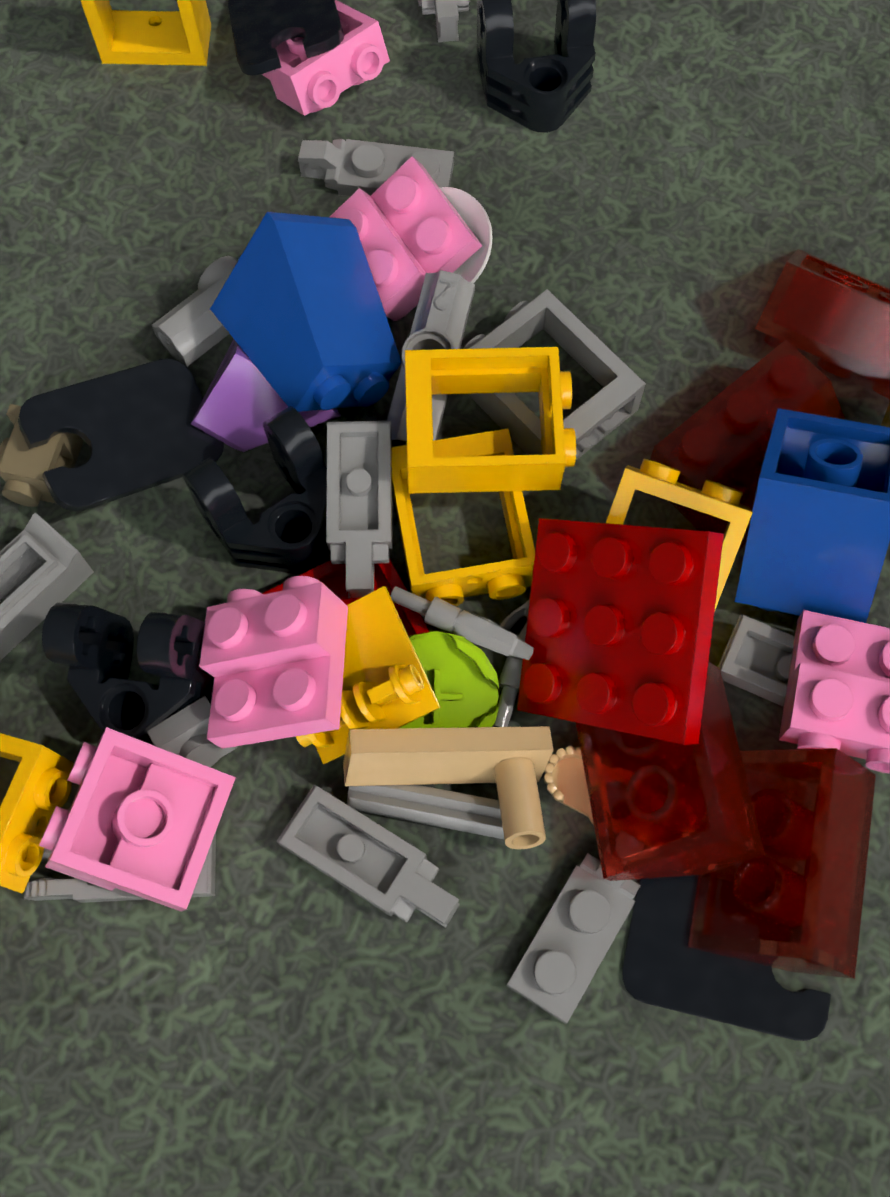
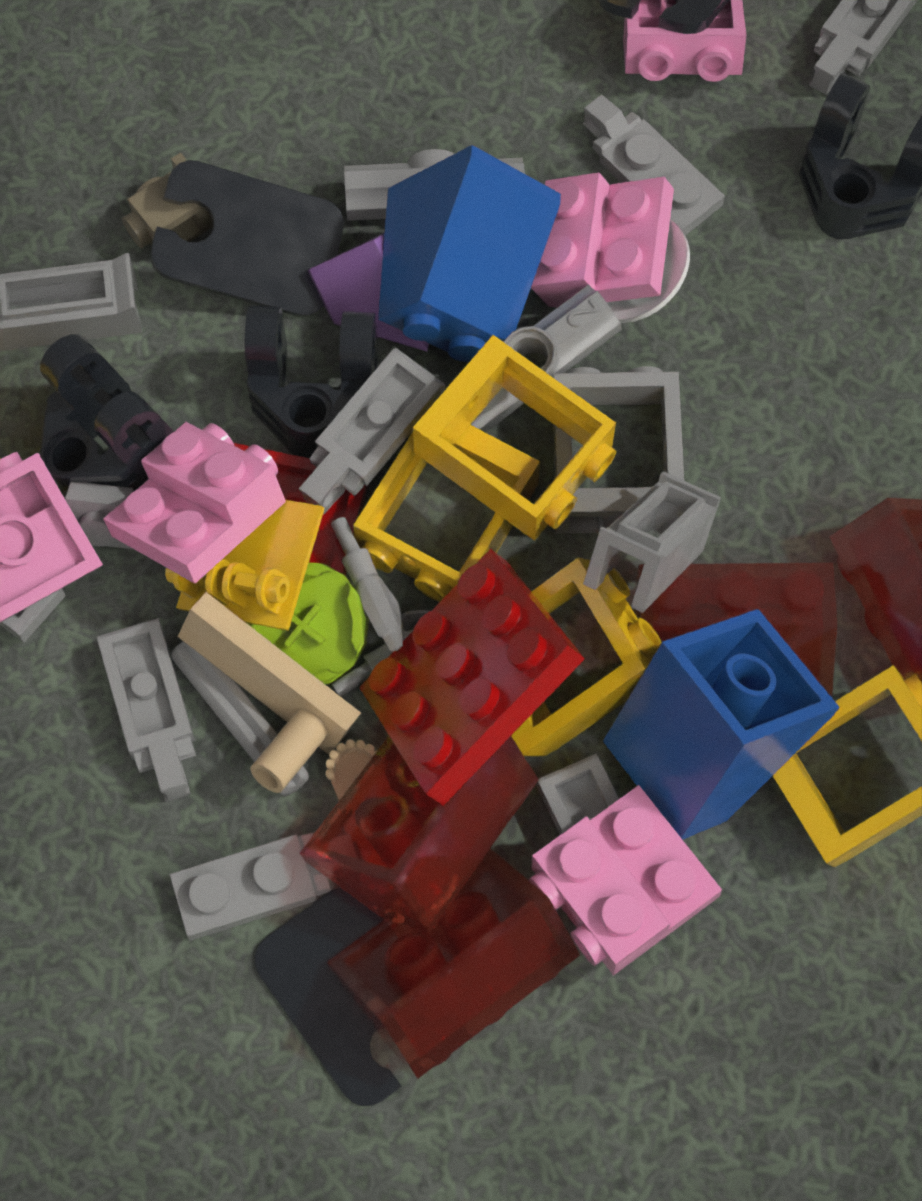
camera: 40 degrees right, 0 degrees up
(661, 398) = (661, 529): none -> light grey window

